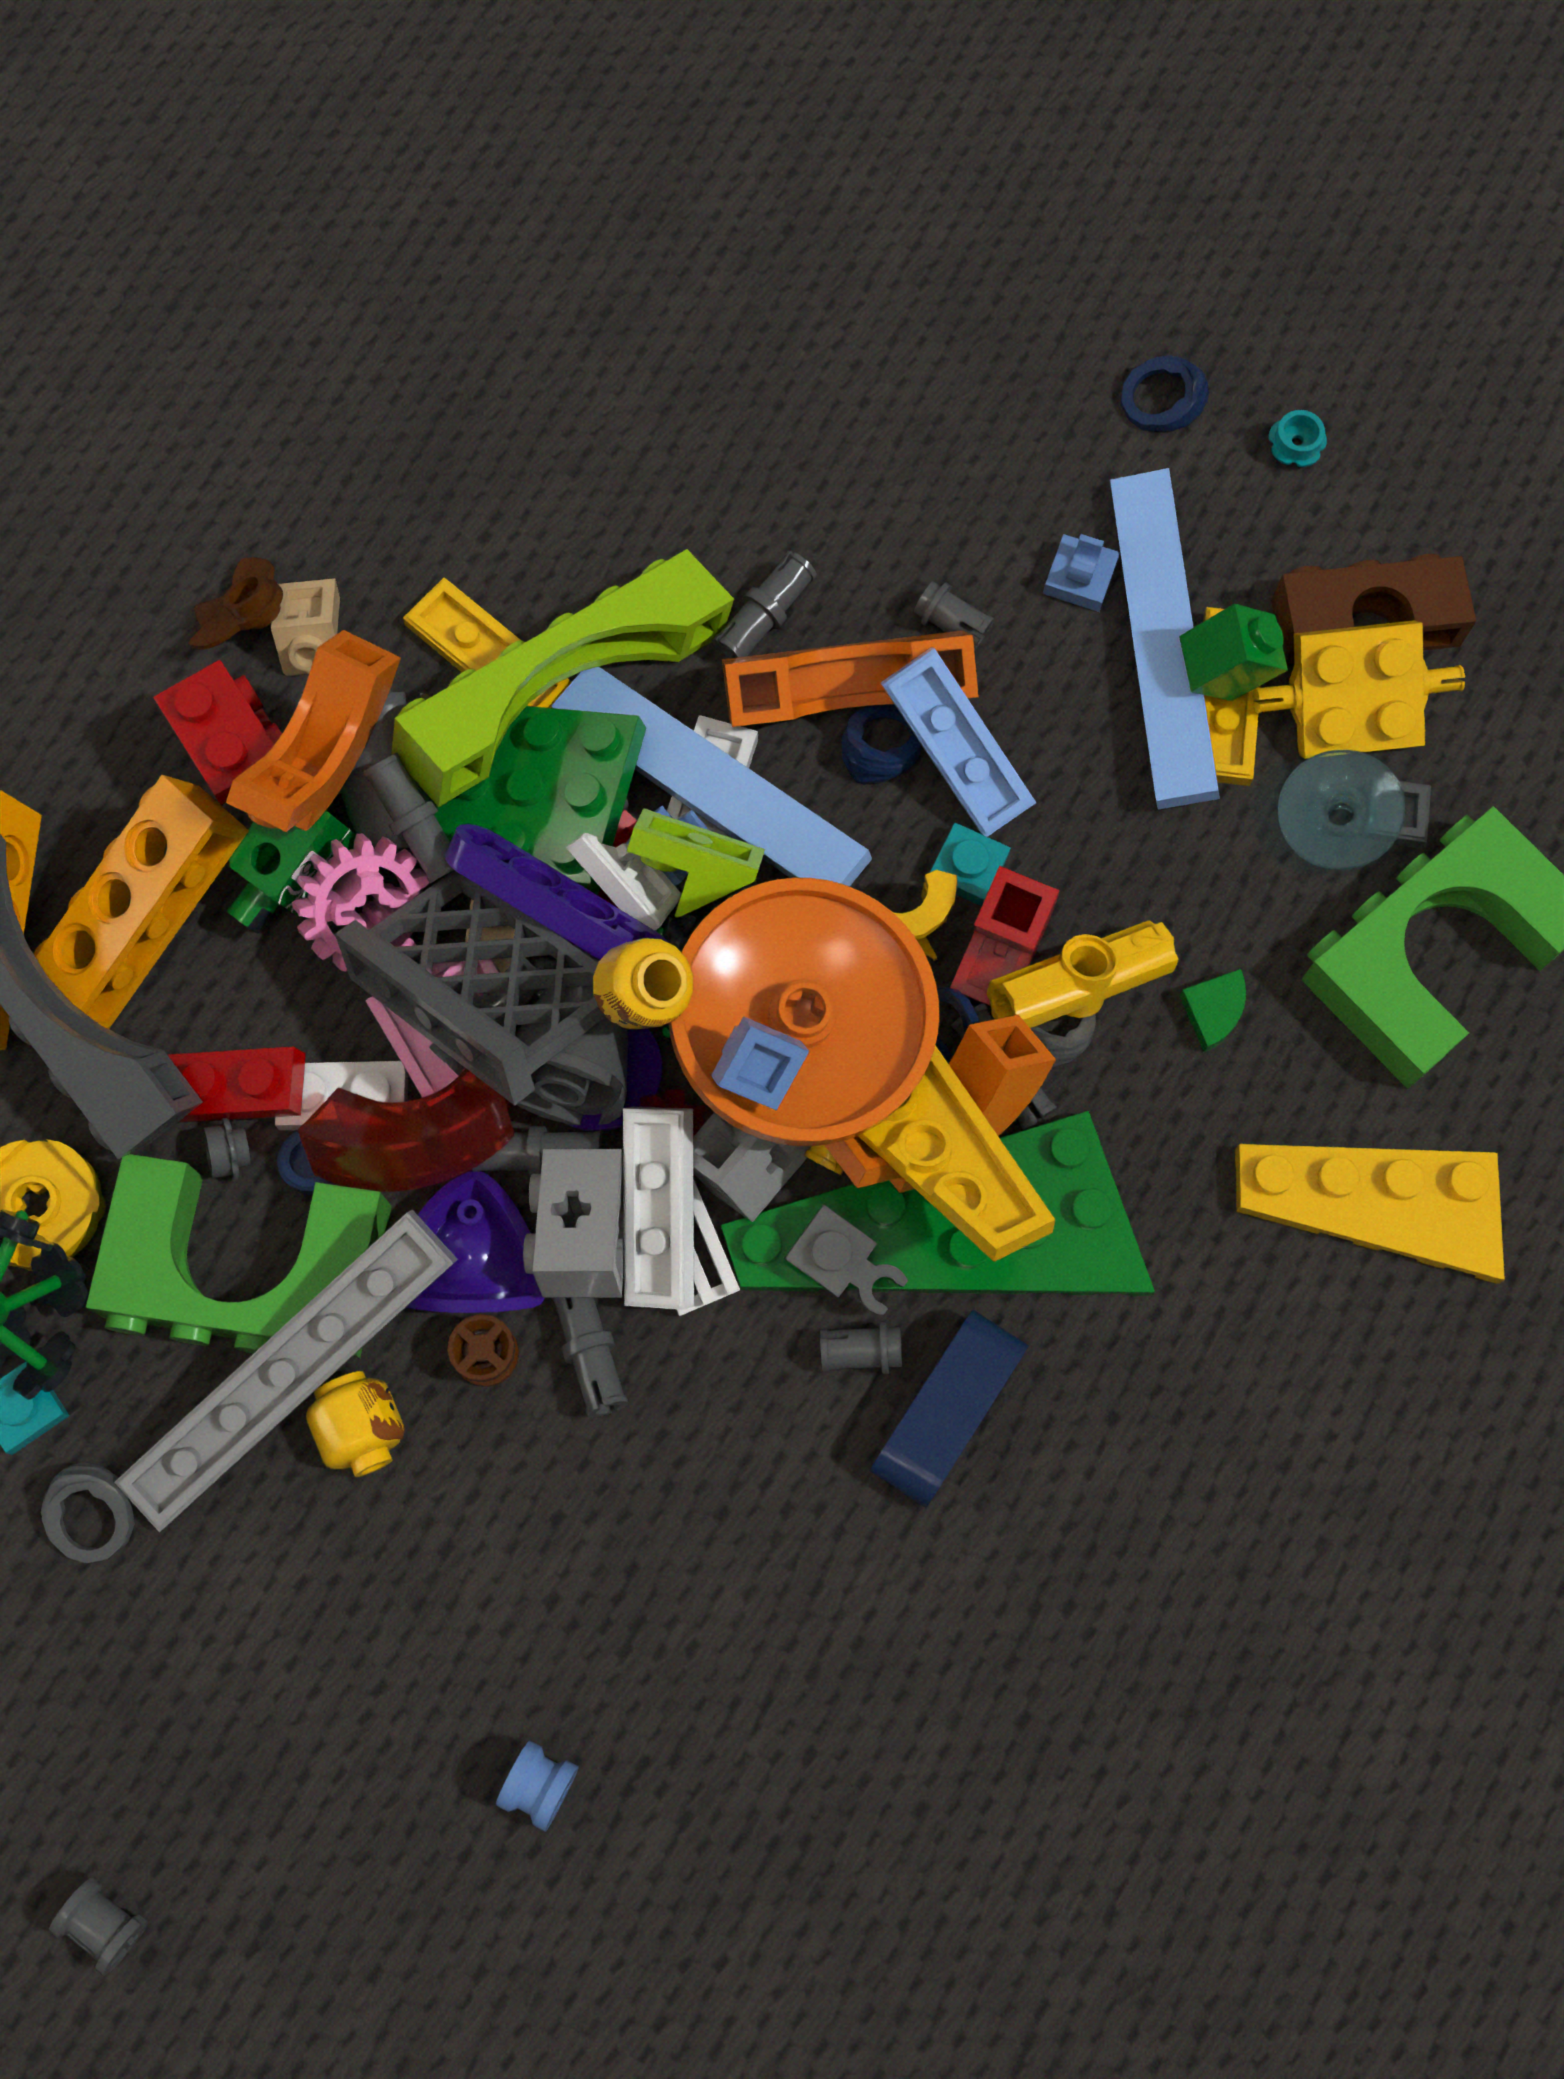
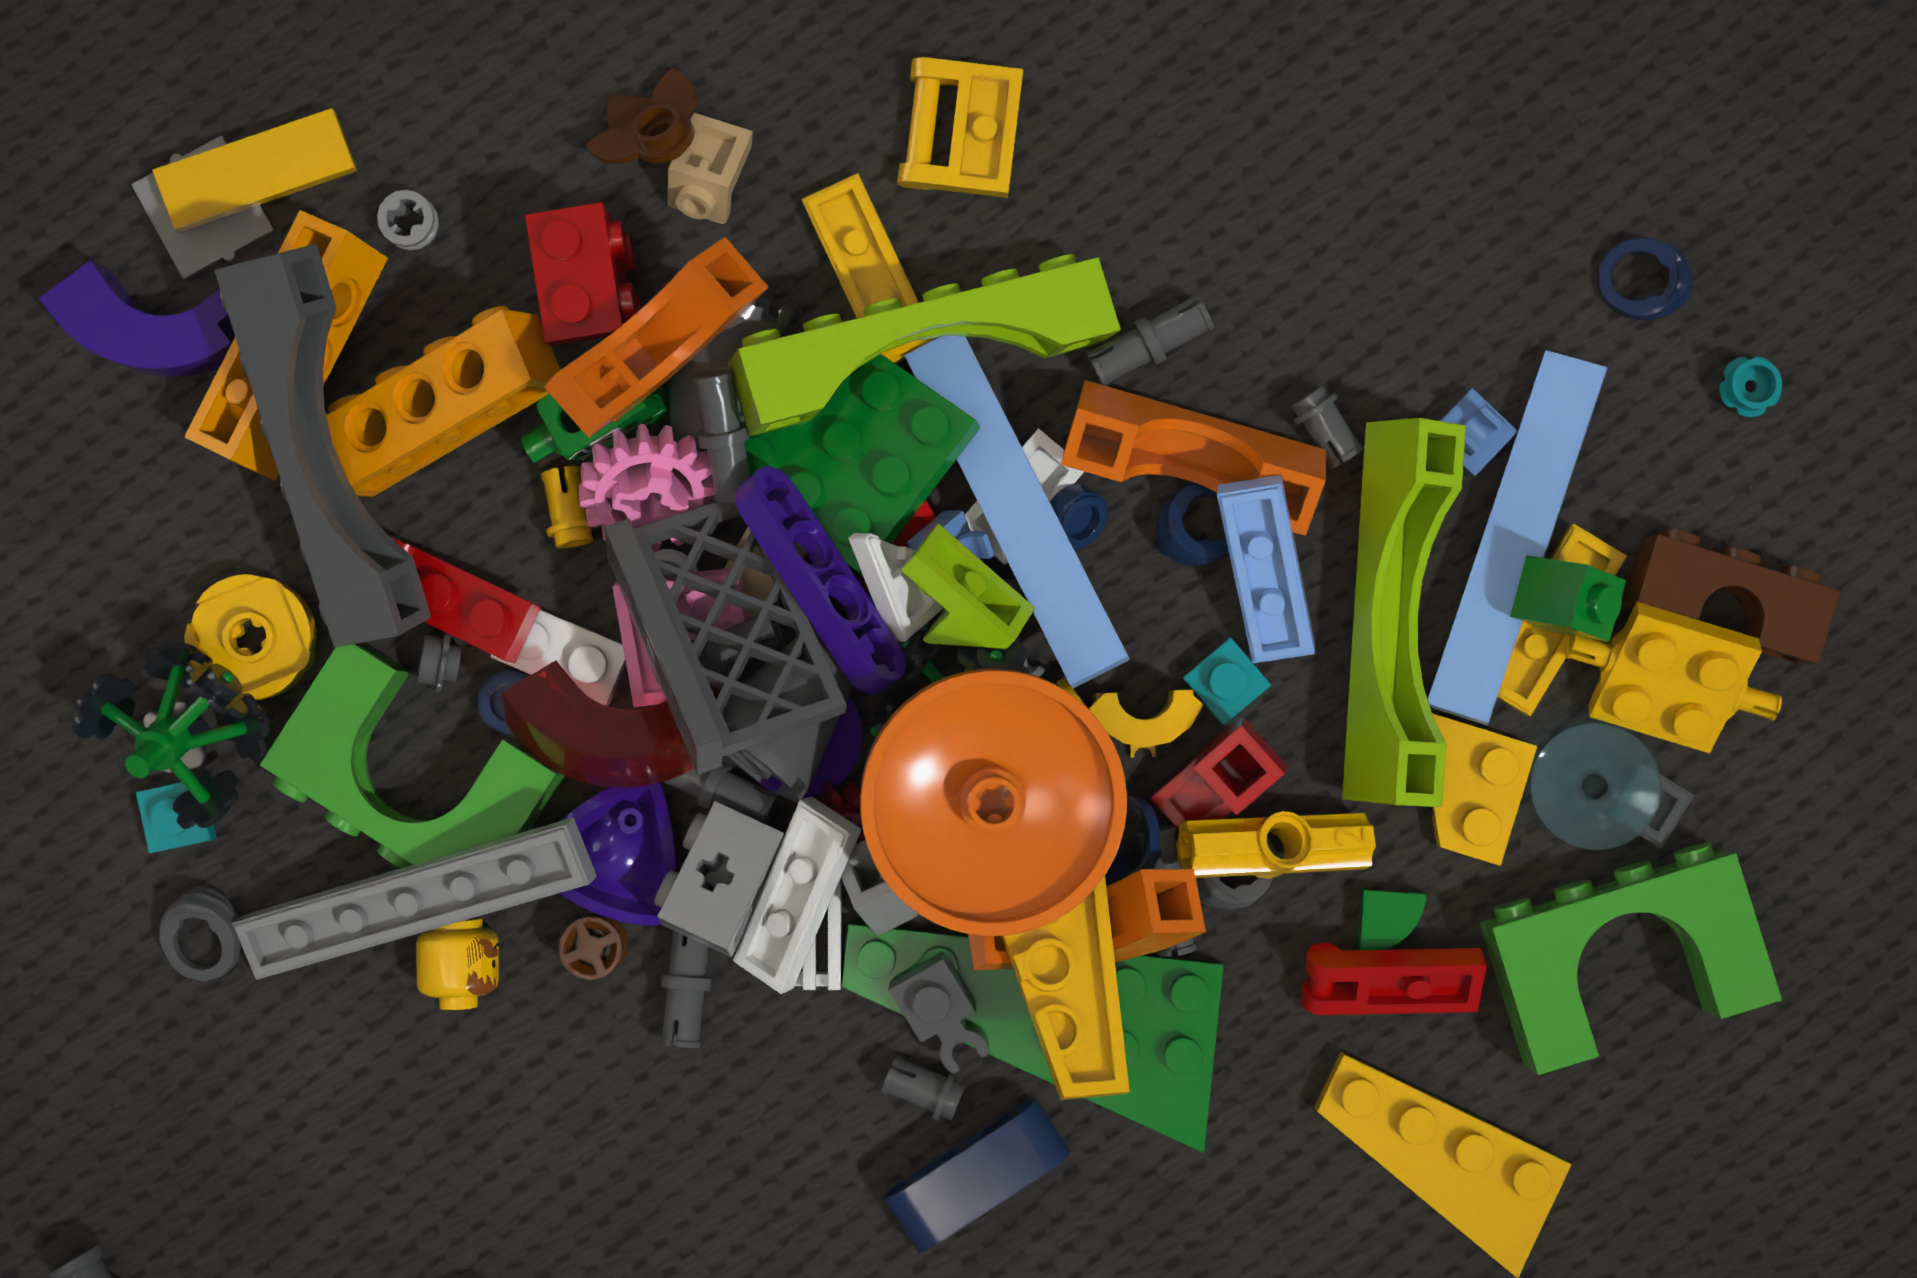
camera: 25 degrees right, 15 degrees up
(31, 772) = (395, 205): none -> light grey bush
(303, 973) = (567, 517): none -> yellow pin
(539, 502) = (981, 129): none -> yellow plate
(643, 984) = (854, 725): yellow head -> none
(759, 1063) = (926, 844): medium blue tile -> none
(773, 765) = (1080, 513): none -> dark blue tile
(1140, 842) = (1406, 491): none -> lime arch
(1234, 859) = (1480, 789): none -> yellow wing
(1250, 1055) = (1392, 980): none -> red plate

